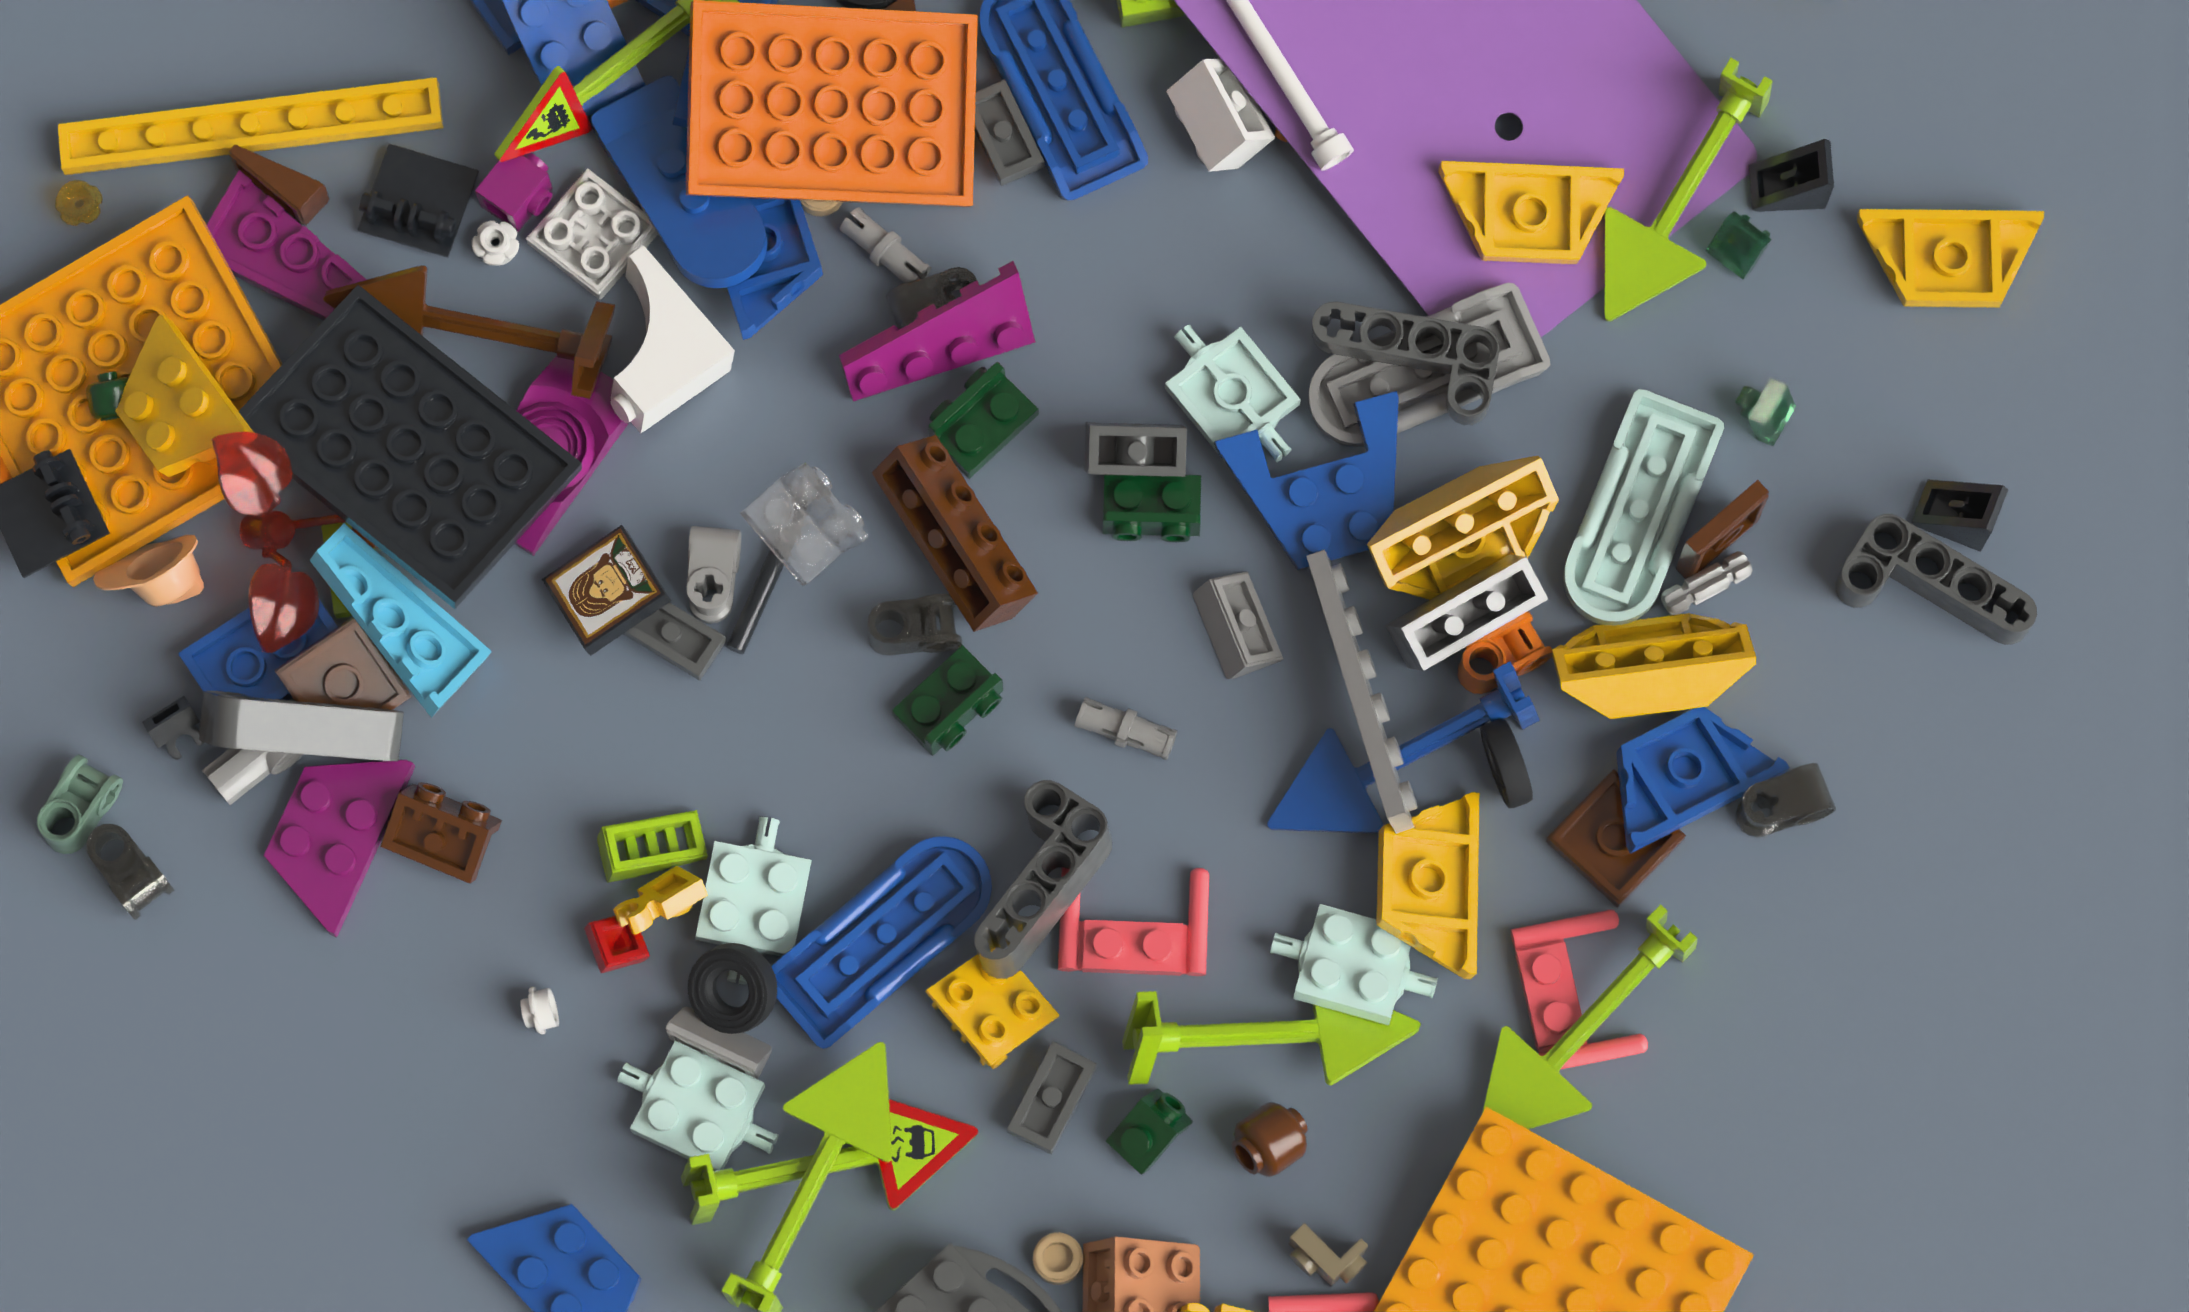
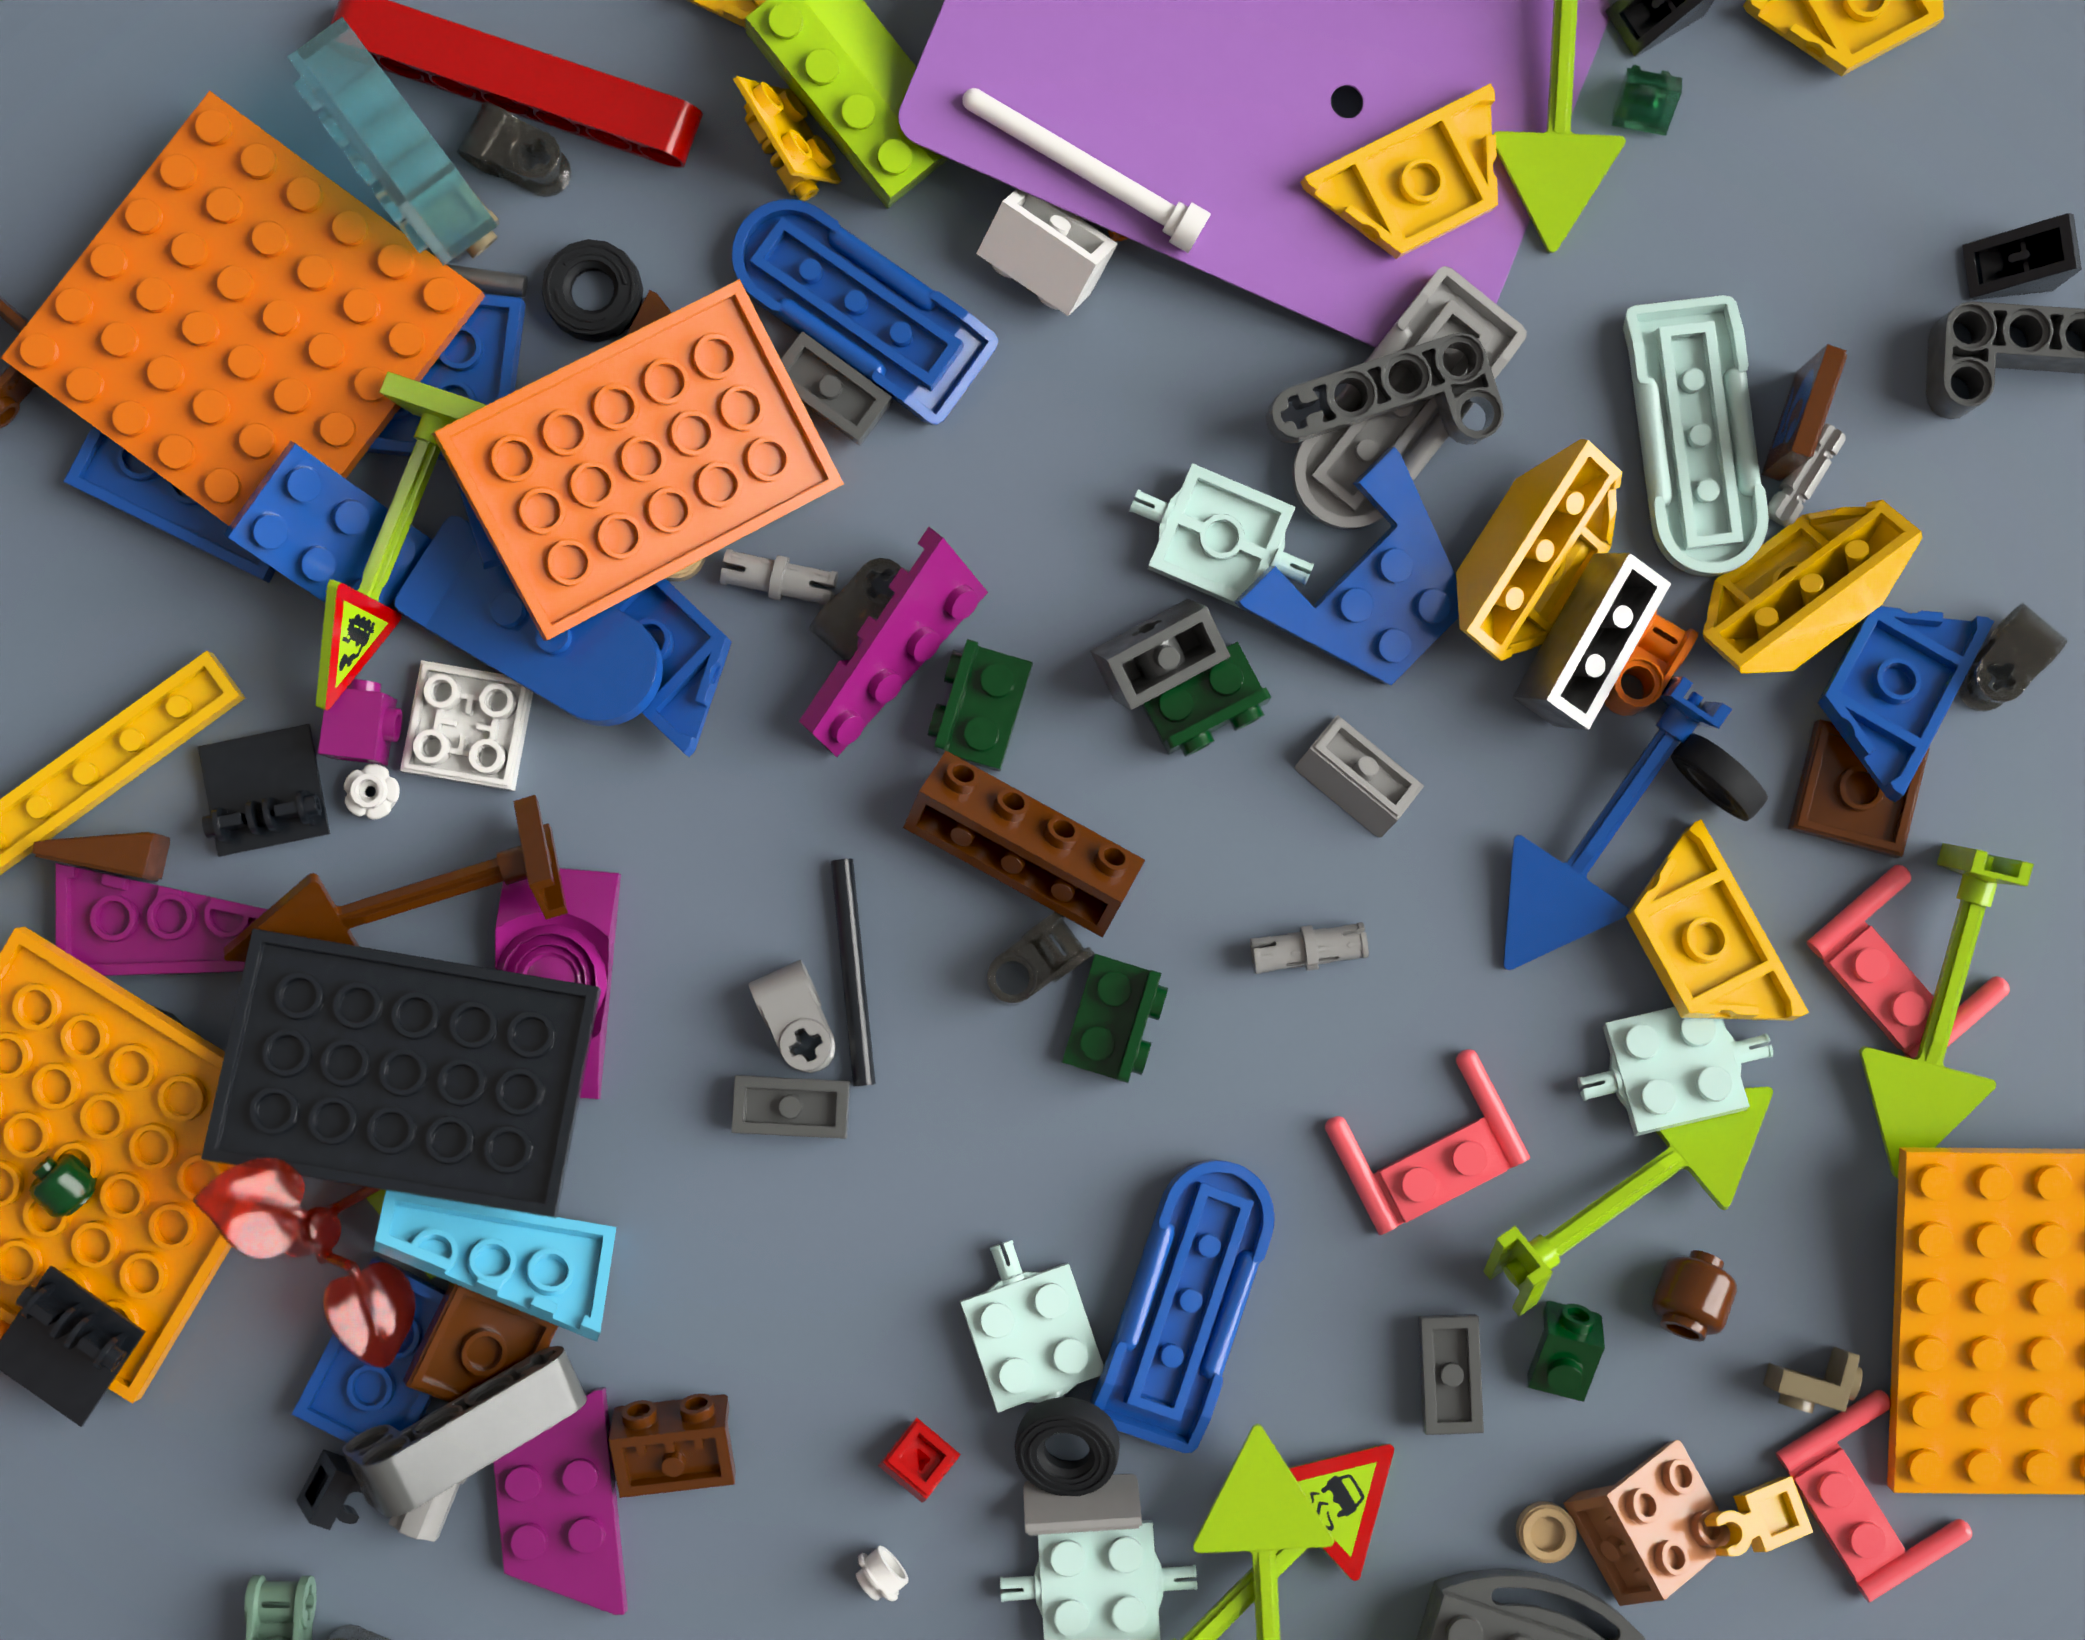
camera: 30 degrees left, 10 degrees up
(156, 572) = (217, 1342): light nougat piece -> none
(175, 402) = (133, 1163): yellow wing -> none
(606, 590) = (698, 1101): tile -> none
(647, 828) = (856, 1366): lime slope -> none
(665, 896) = (941, 1390): yellow plate -> none
(678, 353) = (629, 809): white arch -> none
(804, 522) = (863, 921): clear bracket -> none
(991, 1011) = (1336, 1312): yellow hinge -> none
(1034, 885) = (1316, 1170): dark grey beam -> none
(1368, 708) = (1553, 798): light grey plate -> none
(1767, 410) = (1768, 261): clear green tile -> none

